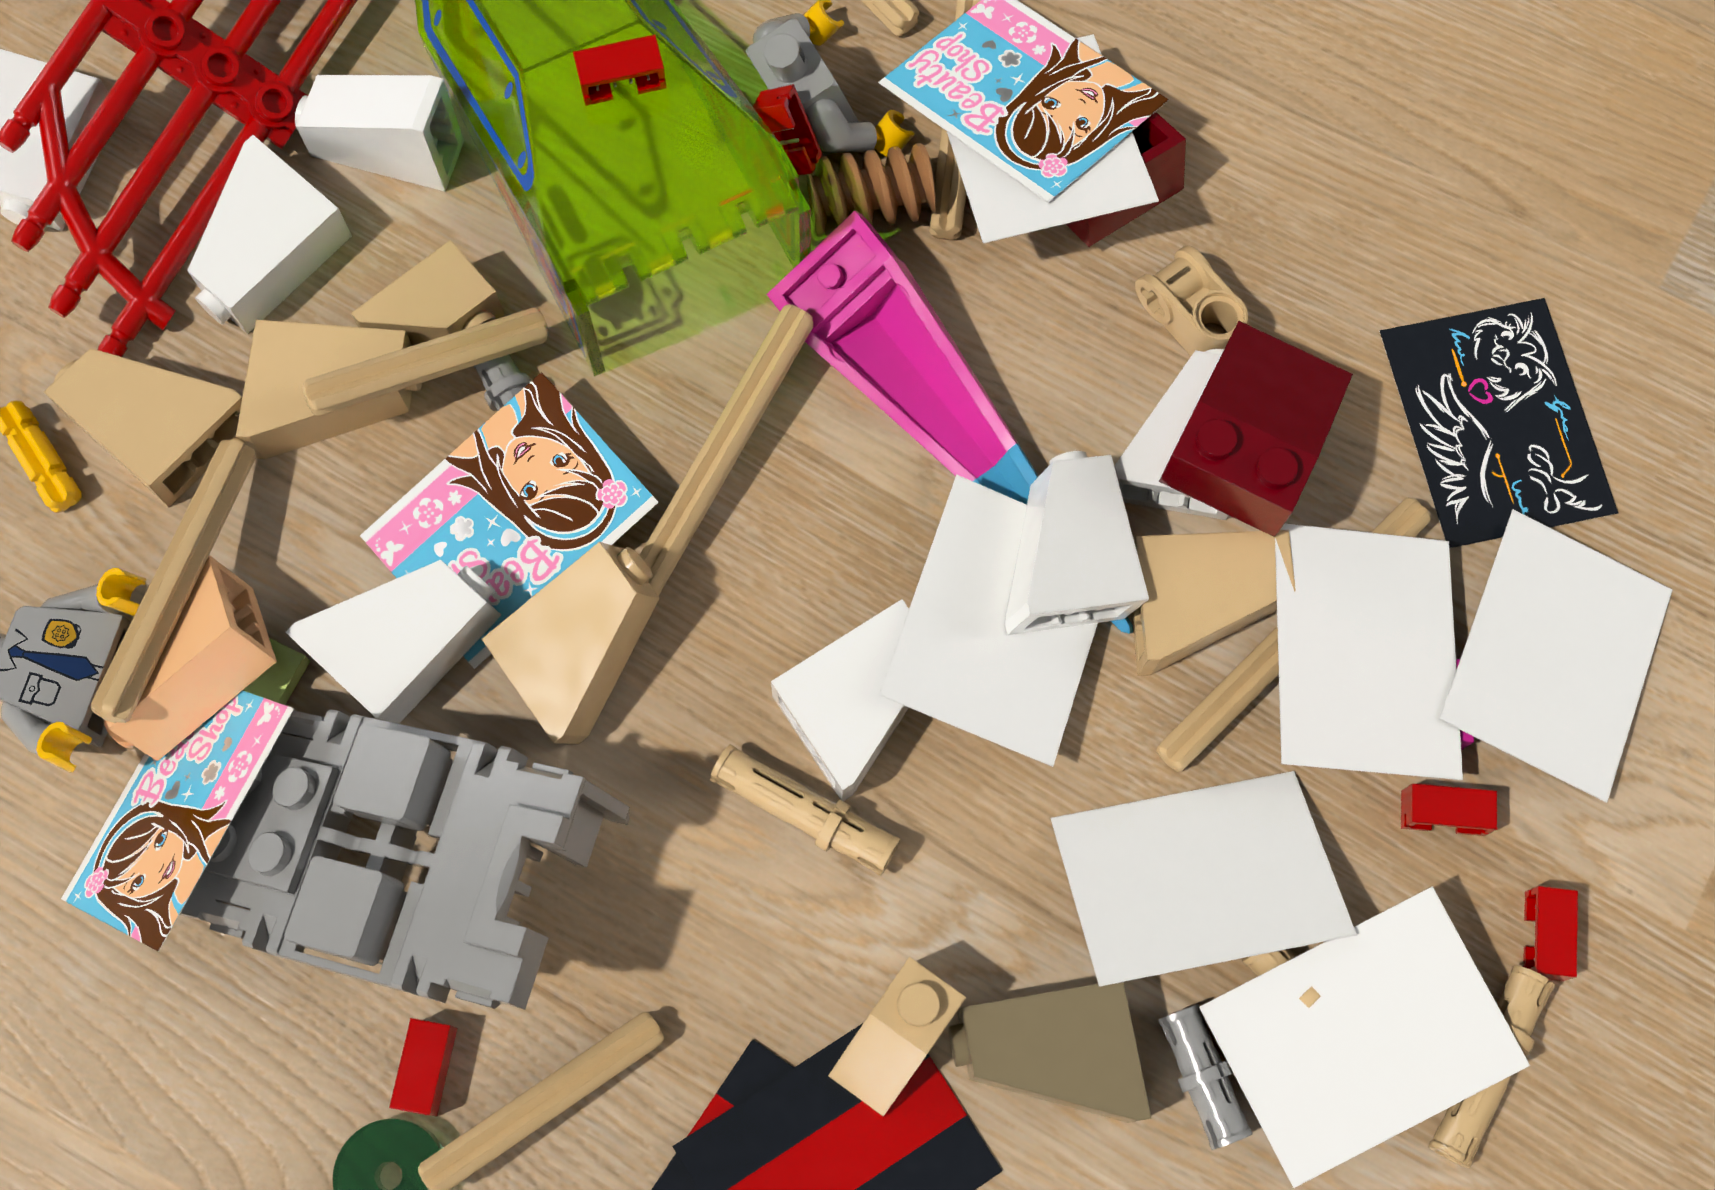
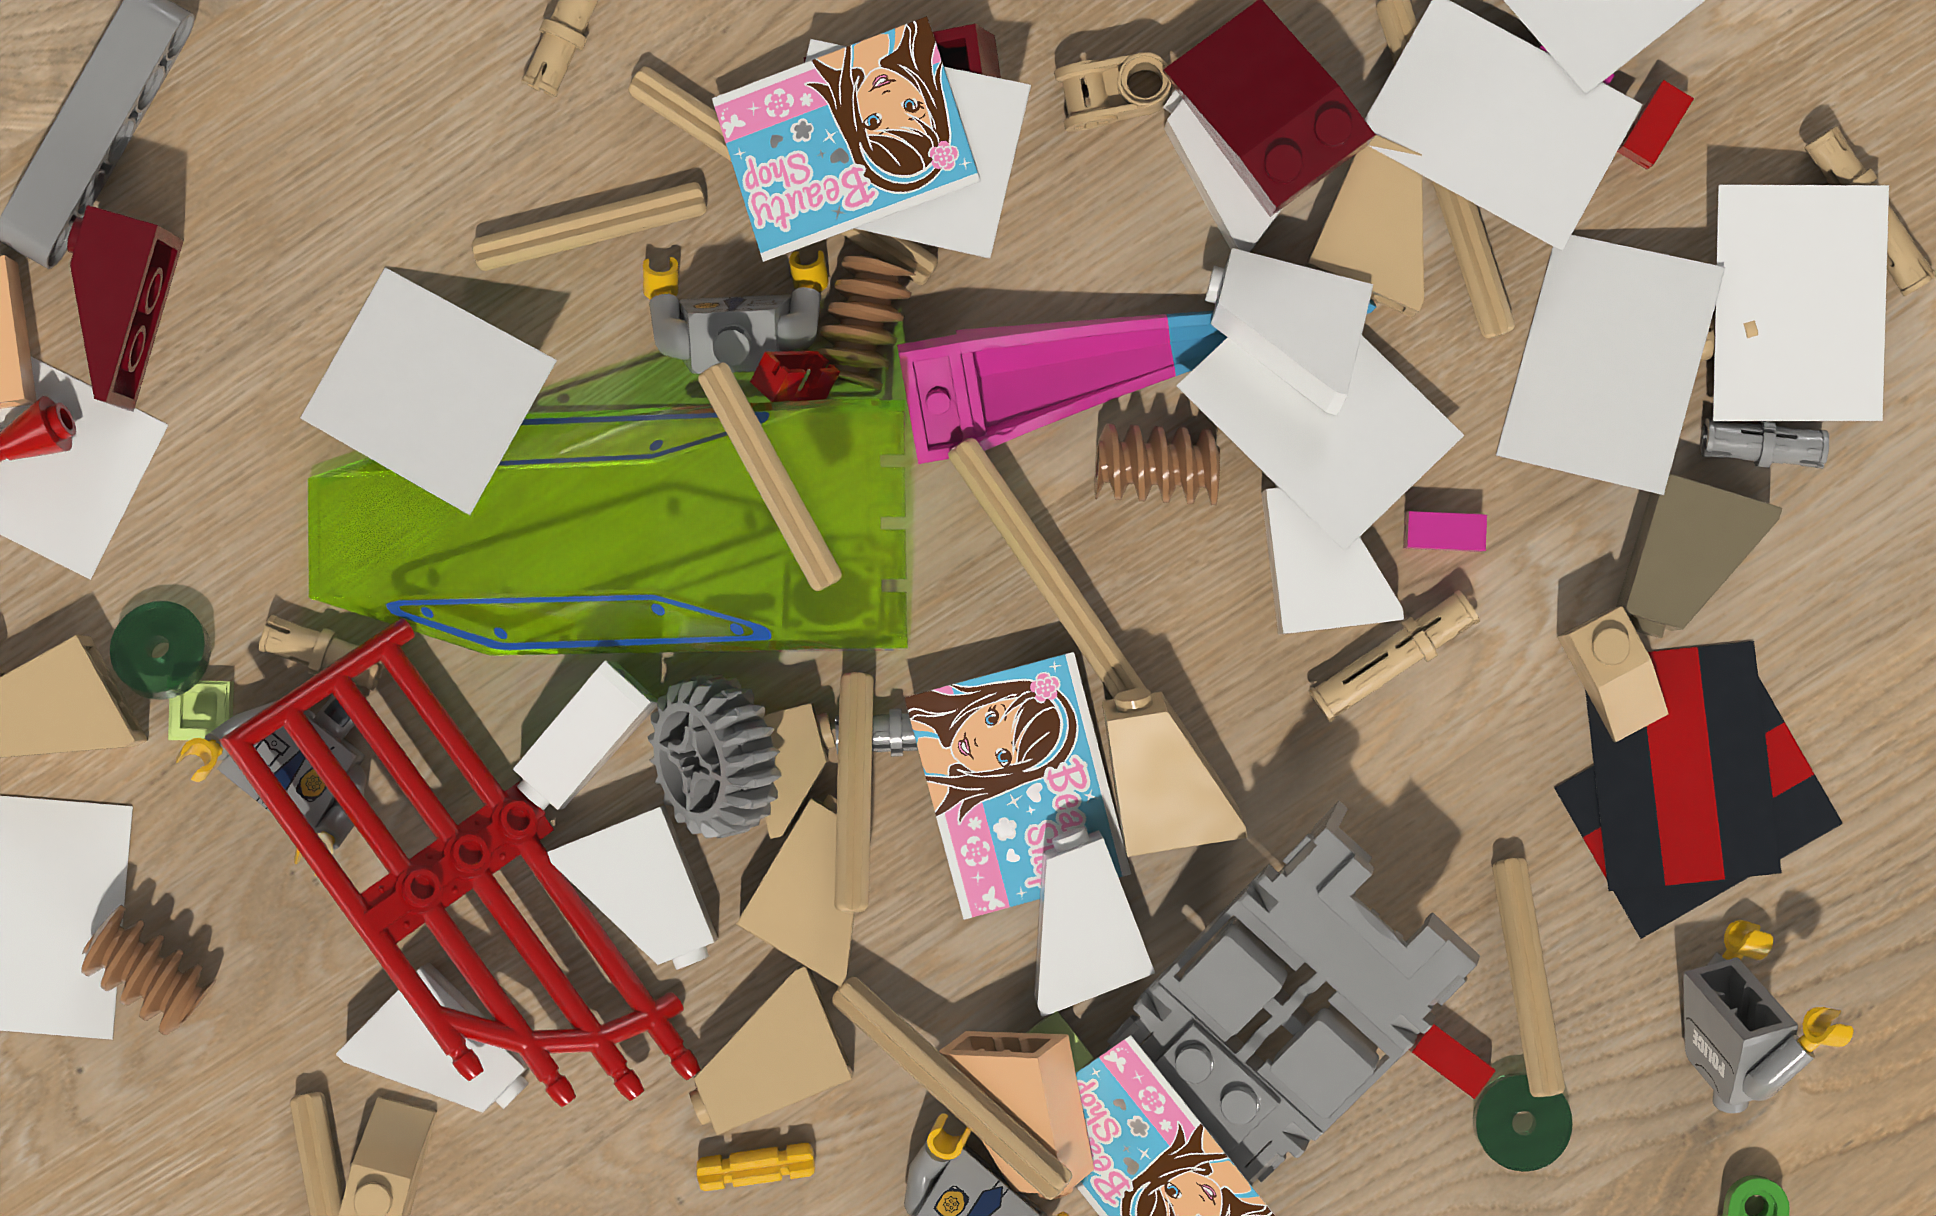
camera: 60 degrees left, 15 degrees up
(406, 229) = (714, 755): none -> light grey gear
(617, 62) = (708, 506): red piece -> none
(673, 110) = (770, 476): none -> tan axle
(872, 499) = (1157, 463): none -> medium nougat piece
(951, 800) = (1445, 531): none -> dark pink piece
(1555, 932) = (1794, 98): red piece -> none

